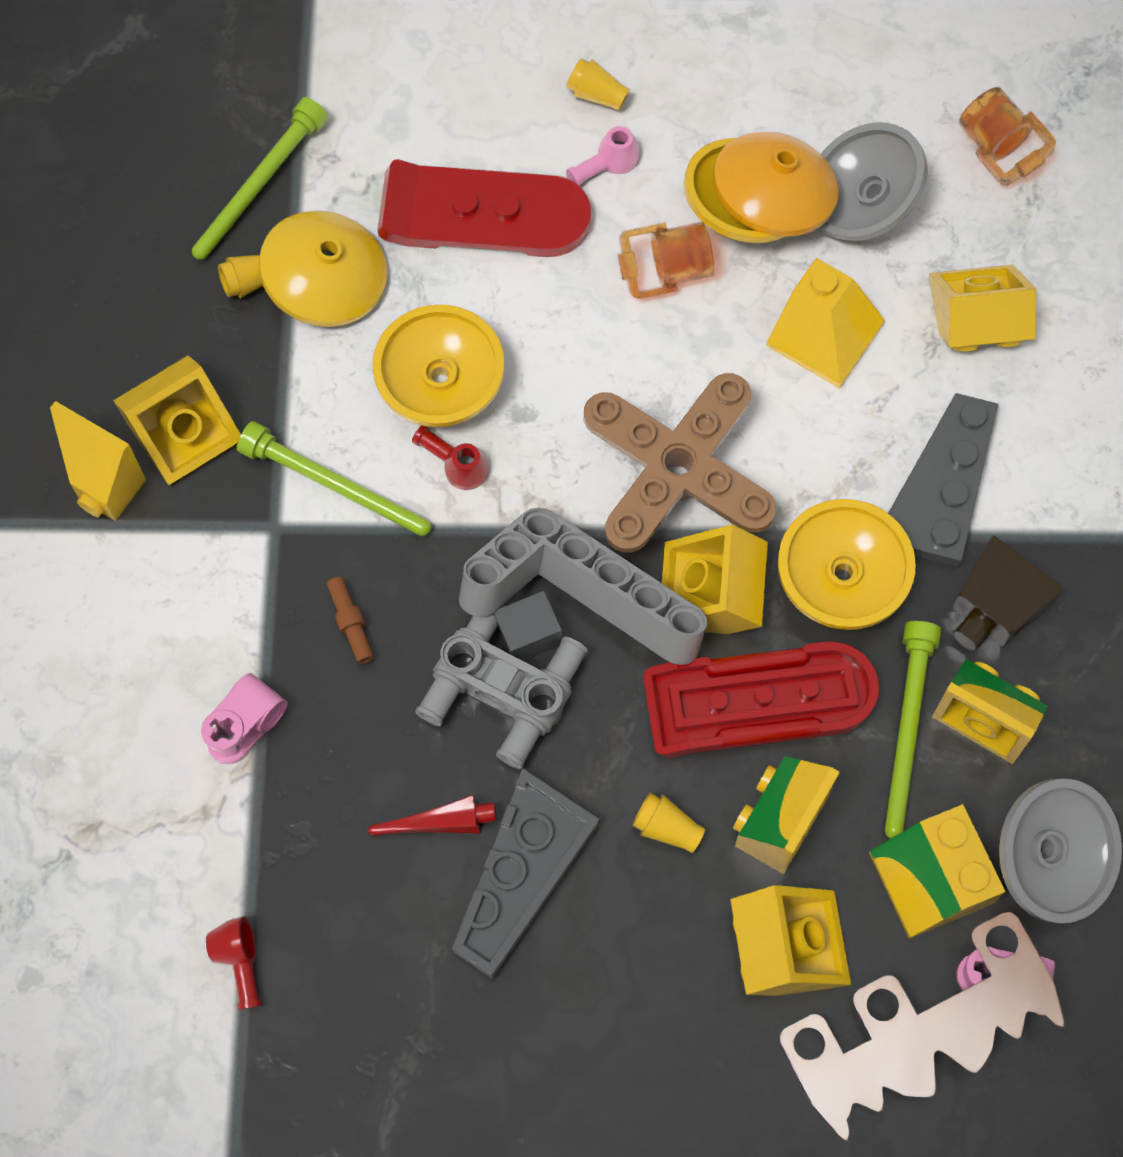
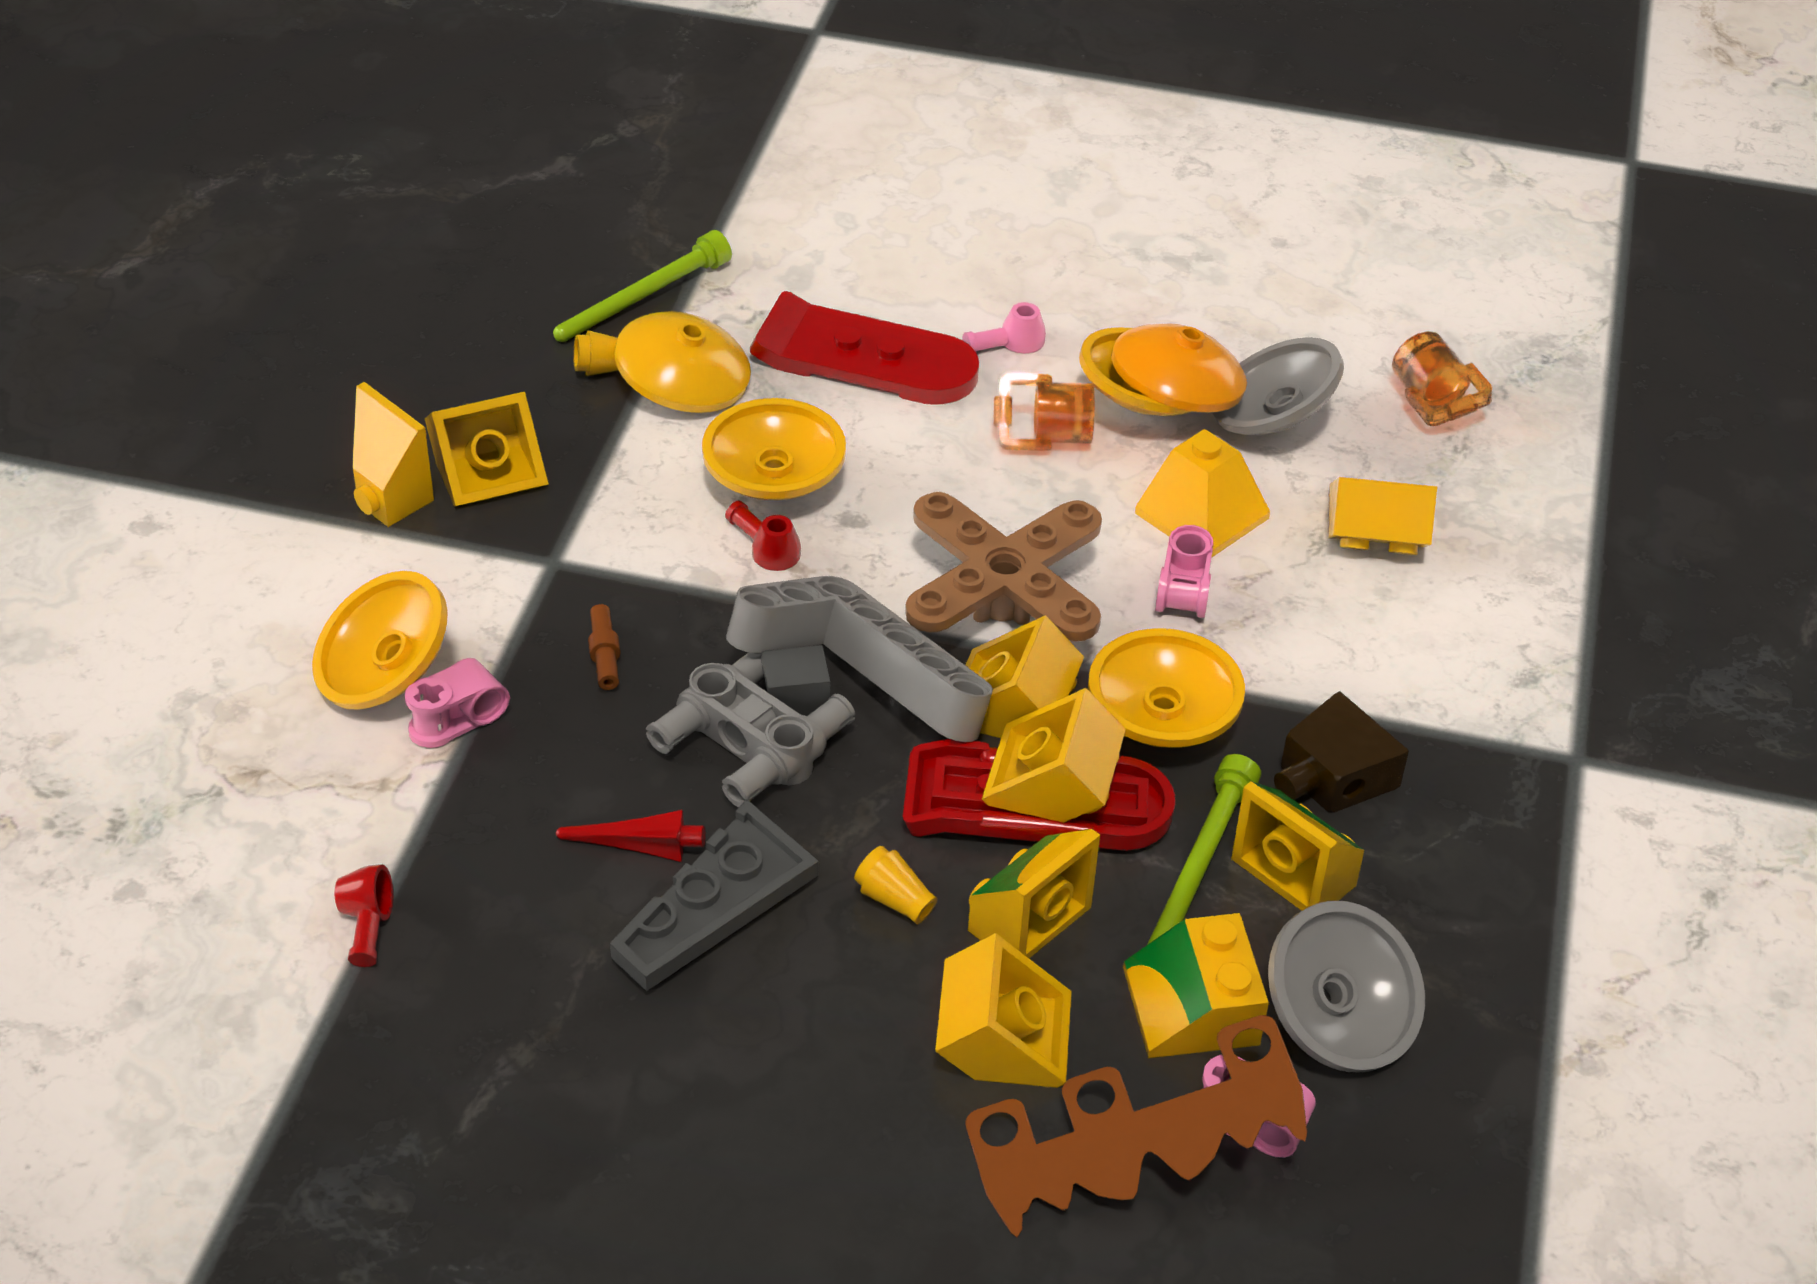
camera: 10 degrees right, 25 degrees down
(141, 677) = (380, 640): none -> yellow dish
(259, 443) = (563, 485): lime piece -> none
(596, 85) = (1014, 274): yellow cone -> none
(774, 675) = (1056, 760): none -> yellow slope
(831, 427) = (1186, 575): none -> bright pink piece
(945, 481) = (1302, 653): dark grey wing -> none

